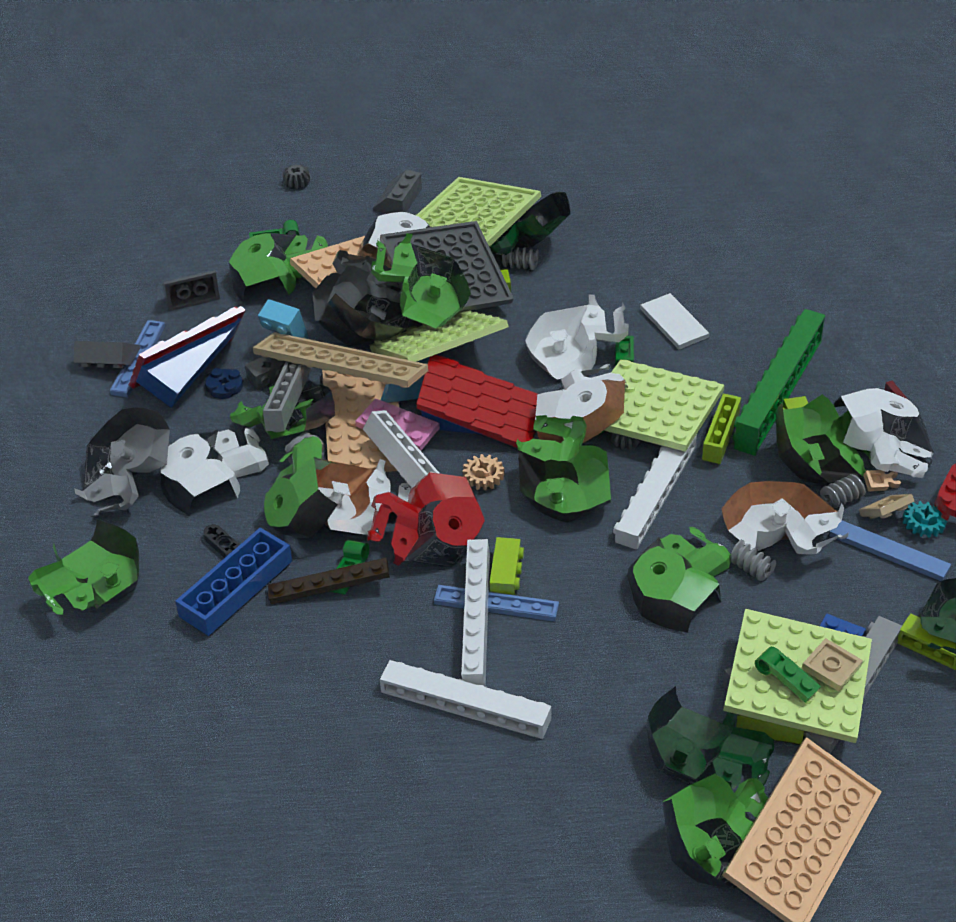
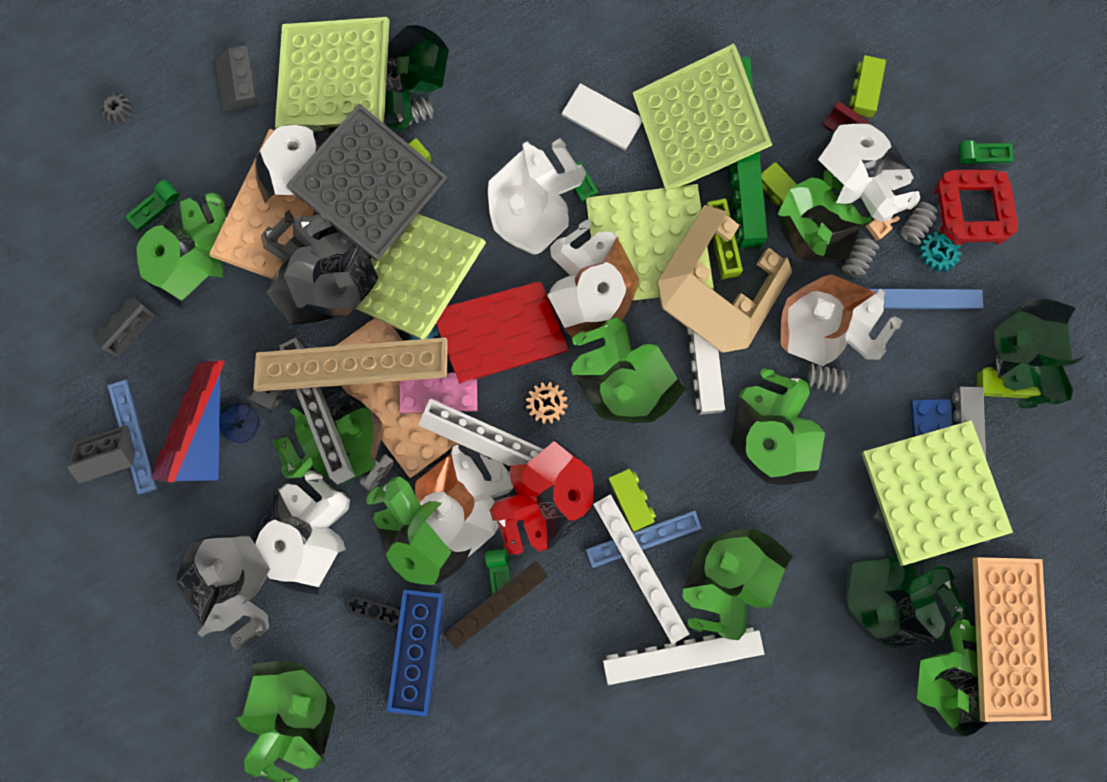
camera: 35 degrees left, 35 degrees up
(282, 319) = (256, 337): medium azure slope -> none
(432, 282) = (375, 220): bright green piece -> none
(563, 647) = (730, 574): none -> bright green piece
(672, 465) = (699, 307): none -> tan slope
(755, 338) = (702, 118): none -> yellowish green plate
(788, 672) = (937, 508): green plate -> none
(832, 664) = (964, 476): tan plate -> none
(886, 505) = (905, 256): tan plate -> none
(921, 488) = (919, 222): none -> light grey piece
(929, 385) = (867, 86): none -> lime brick

